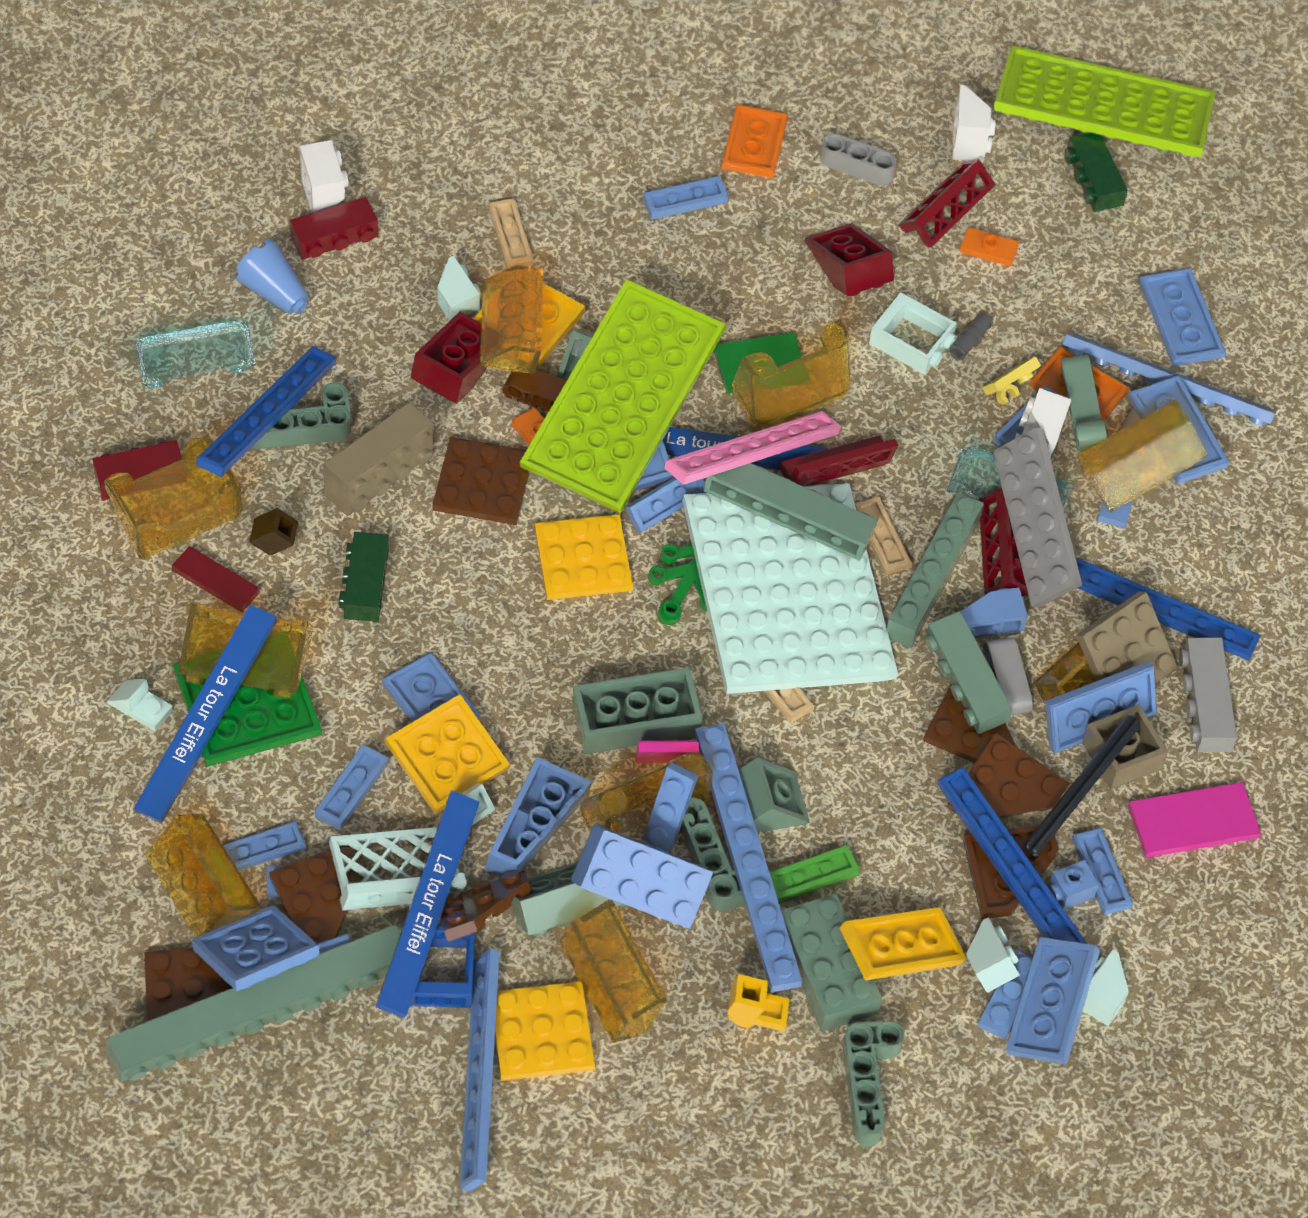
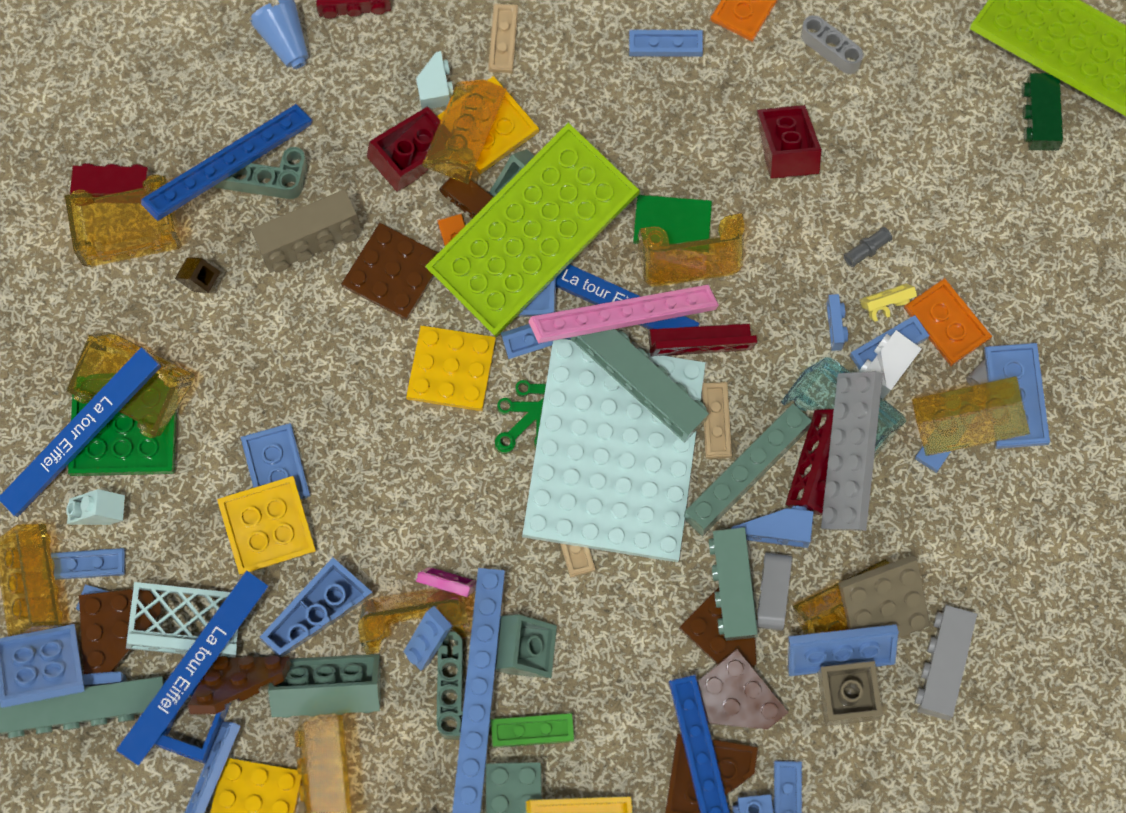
camera: 25 degrees right, 15 degrees up
(140, 704) = (38, 403): light aqua slope -> none
(193, 351) = (188, 81): clear light blue windscreen -> none
(215, 579) = (139, 303): dark red tile -> none
(250, 787) = (95, 508): none -> light aqua slope
(351, 787) = (179, 531): medium blue plate -> none
(364, 576) = (259, 337): dark green brick -> none
(485, 806) = (274, 577): light aqua plate -> none
(636, 709) = (437, 532): sand green brick -> none
(641, 876) = (376, 700): brick -> none
(921, 316) = (817, 203): light aqua window -> none
(941, 197) = (892, 101): dark red fence -> none
(967, 412) = (835, 313): none -> medium blue plate
(971, 127) = (945, 40): white slope -> none
(989, 246) = (919, 161): orange plate -> none
(1081, 785) = (793, 725): black axle -> none
(1084, 406) = (940, 346): sand green beam -> none
(1131, 365) = (1024, 332): medium blue plate -> none
(1168, 610) = (939, 563): blue tile -> none
(1182, 317) = (1068, 277): medium blue tile -> none
(1194, 819) = (888, 778): dark pink tile -> none

